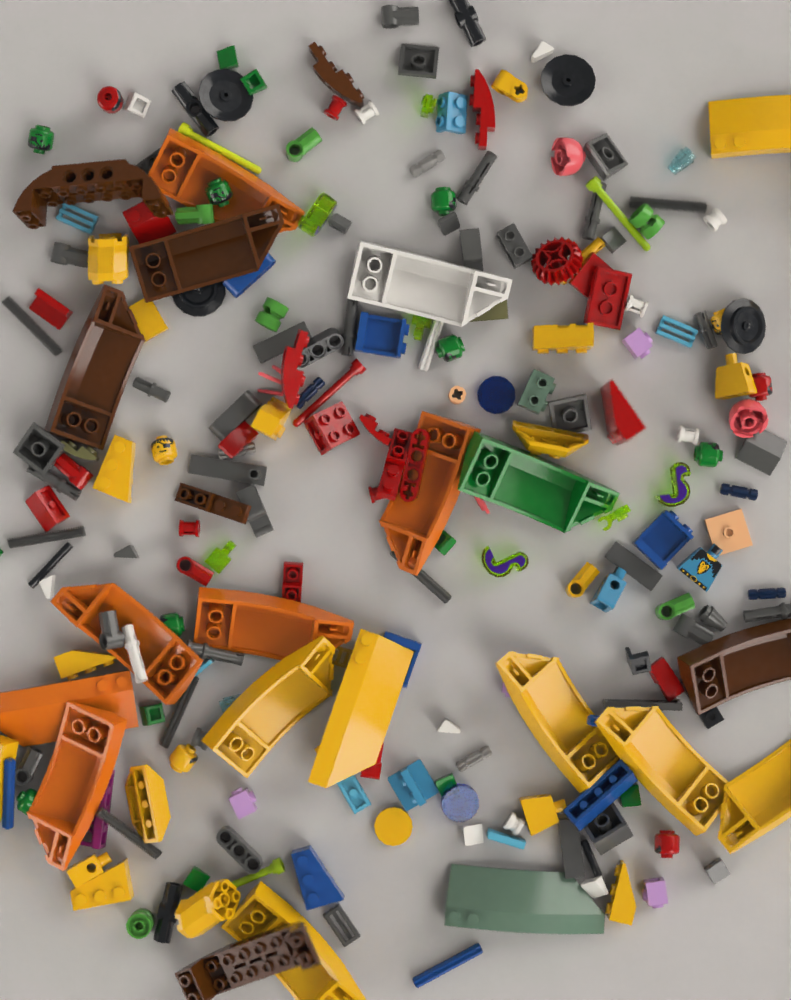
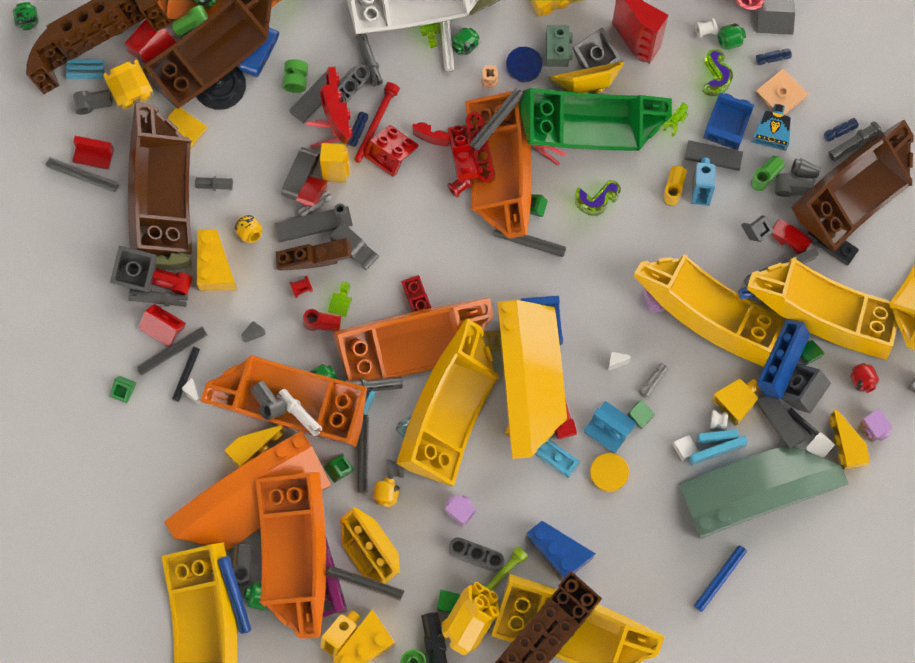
camera: 30 degrees left, 15 degrees down
(333, 911) = (602, 584): dark grey tile -> none
(381, 335) = (400, 56): blue panel -> none
(440, 449) = (496, 119): none -> dark grey axle
(460, 802) = (660, 423): clear blue tile -> none
(503, 851) = (718, 450): none -> medium azure tile

